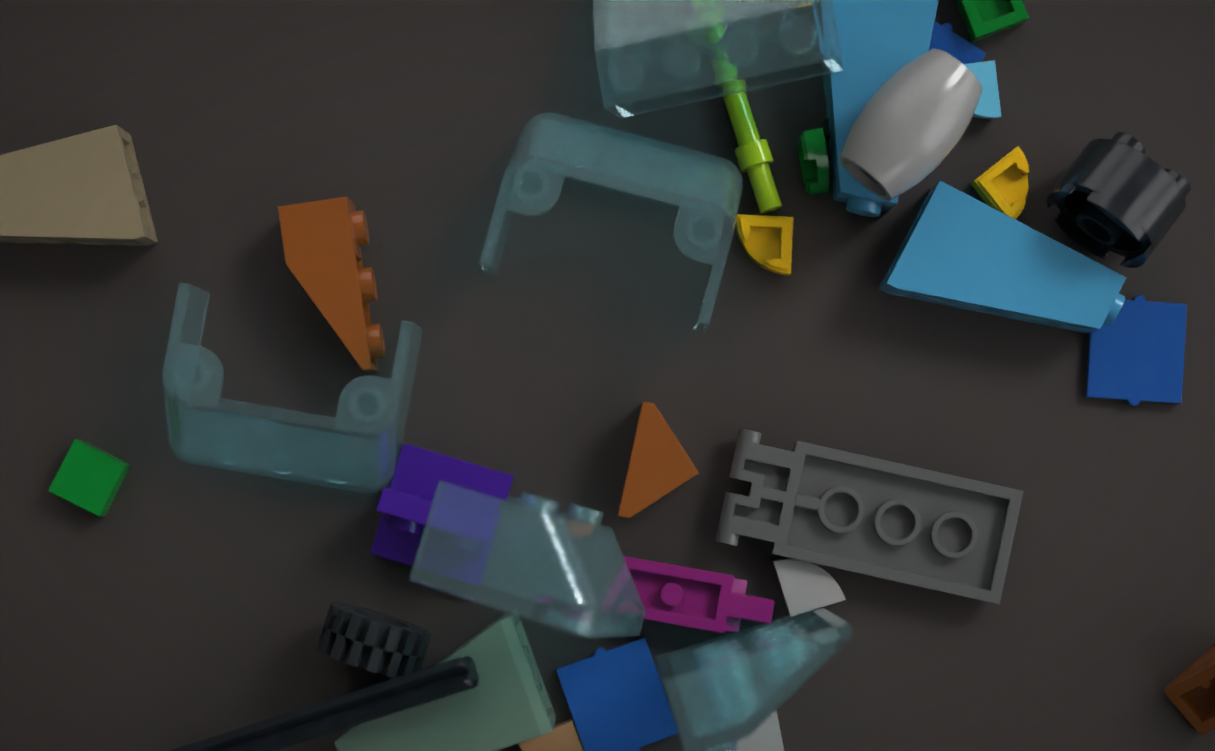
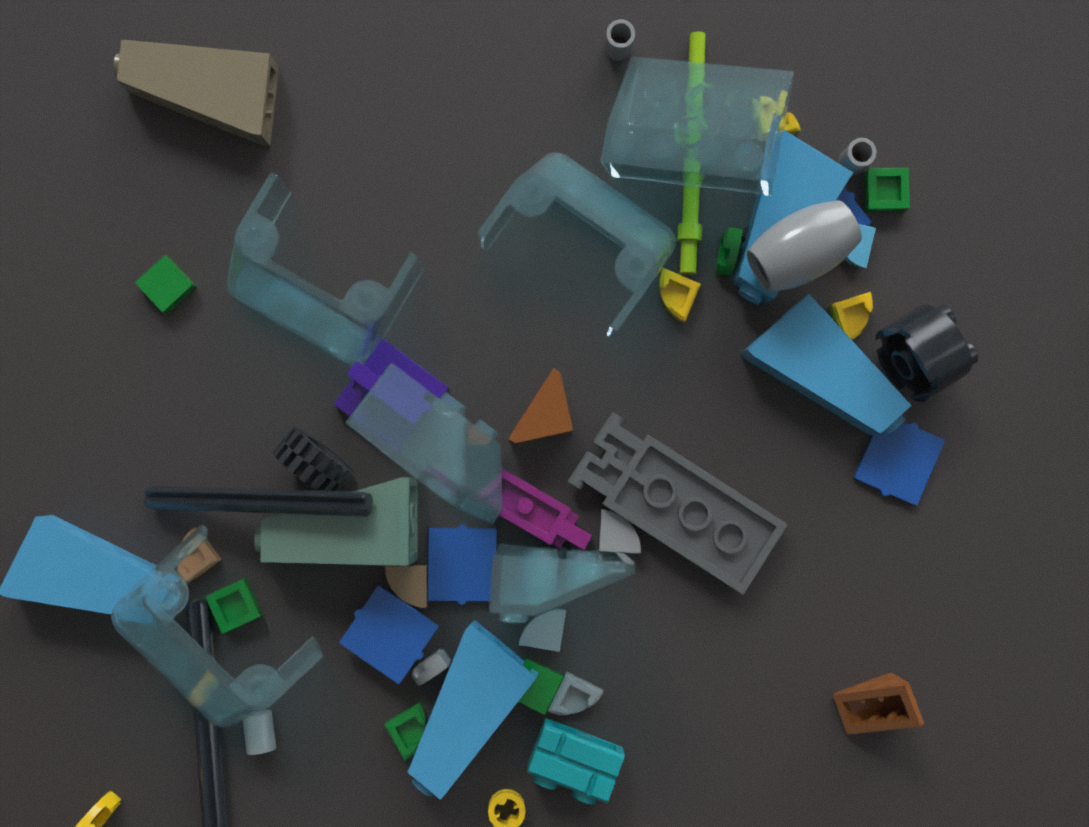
camera: 20 degrees right, 0 degrees up
(326, 259) = (377, 196): dark orange slope -> none

